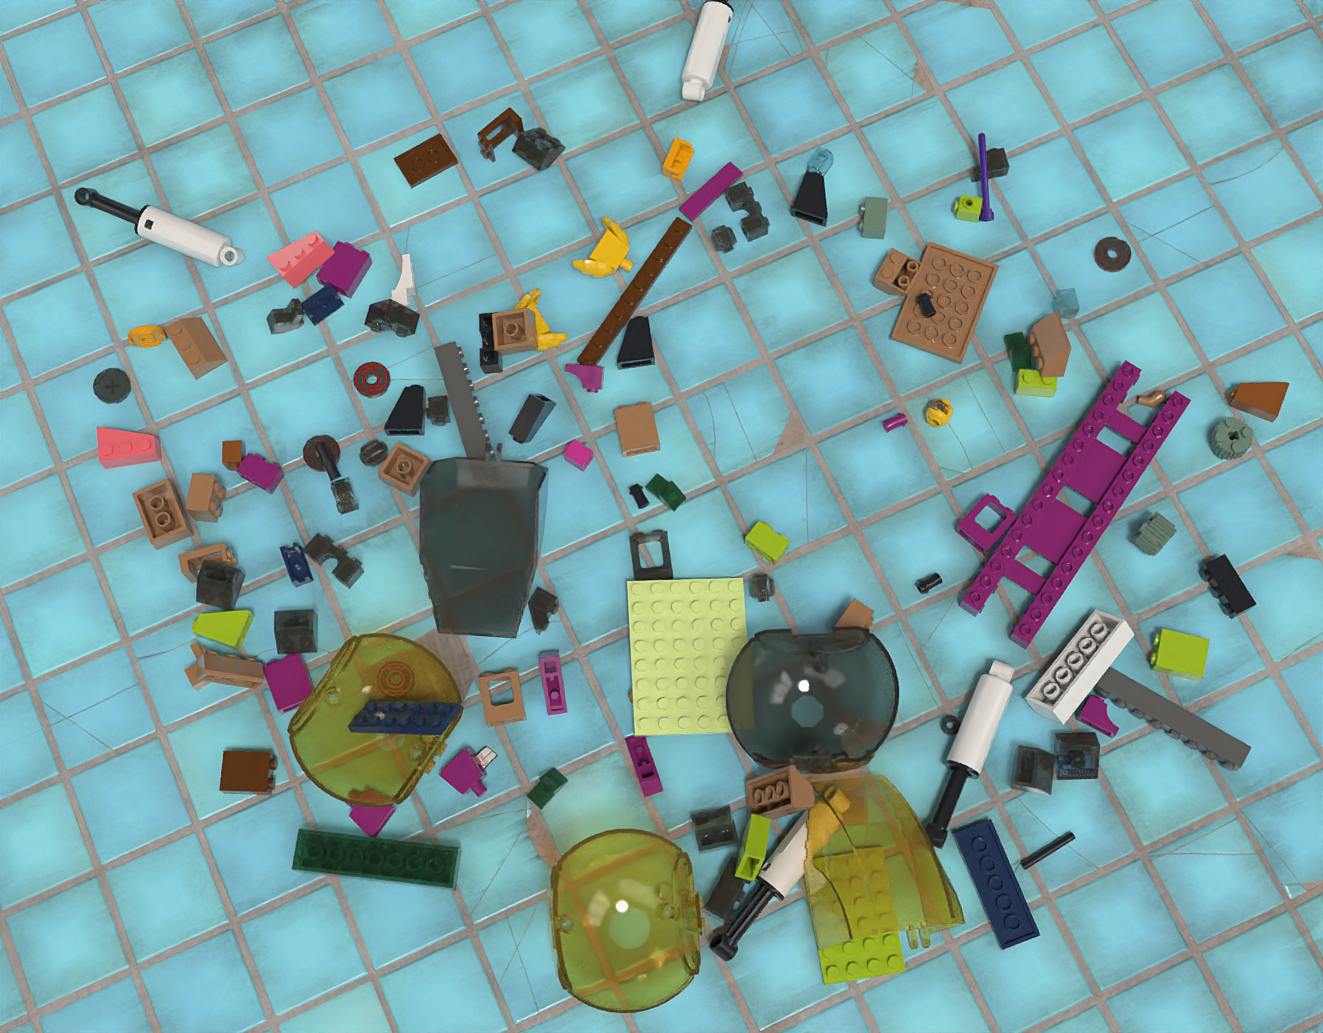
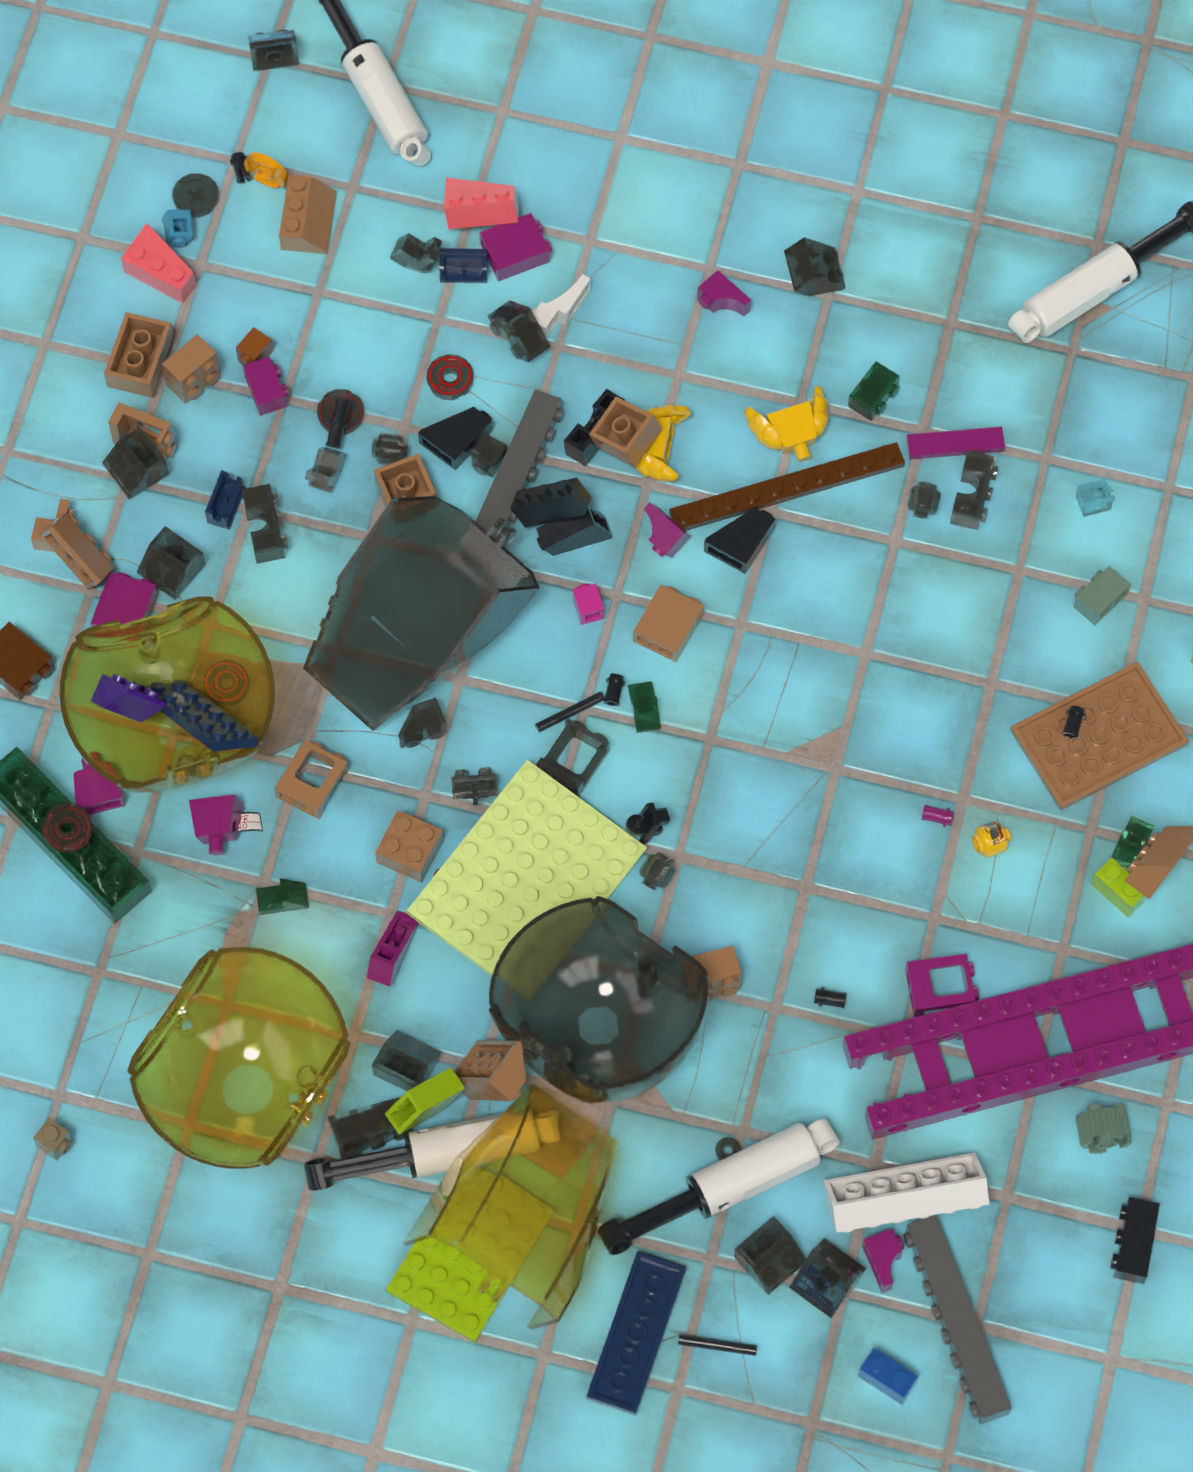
camera: 35 degrees right, 5 degrees down
(85, 257) = (273, 50): none -> clear smoke slope
(115, 410) = (180, 221): none -> dark azure brick
(122, 344) = (237, 161): none -> black pin
(224, 628) = (107, 508): lime slope -> none
(348, 742) = (126, 698): none -> dark purple slope
(388, 859) = (71, 840): none -> clear smoke tile
(425, 160) = (690, 197): reddish brown tile -> none
(496, 204) = (721, 294): none -> magenta arch
(506, 410) = (550, 502): none -> black brick
(510, 123) = (803, 223): reddish brown window -> none
(553, 682) = (373, 801): magenta slope -> none
(599, 692) = (409, 846): none -> medium nougat brick
(607, 624) = (474, 786): none -> clear smoke hips
(623, 531) = (569, 712): none -> black bar
(637, 196) = (873, 391): none -> clear green brick
(678, 159) = (948, 385): light orange hinge -> none
(732, 562) = (648, 822): none -> black hips
(767, 542) = (701, 832): lime brick -> none
(811, 200) = (1051, 527): black slope -> none
(897, 273) = (1072, 667): medium nougat slope -> none
(1163, 787) = (888, 1376): none -> blue brick
(1179, 654) = (1023, 1265): lime brick -> none

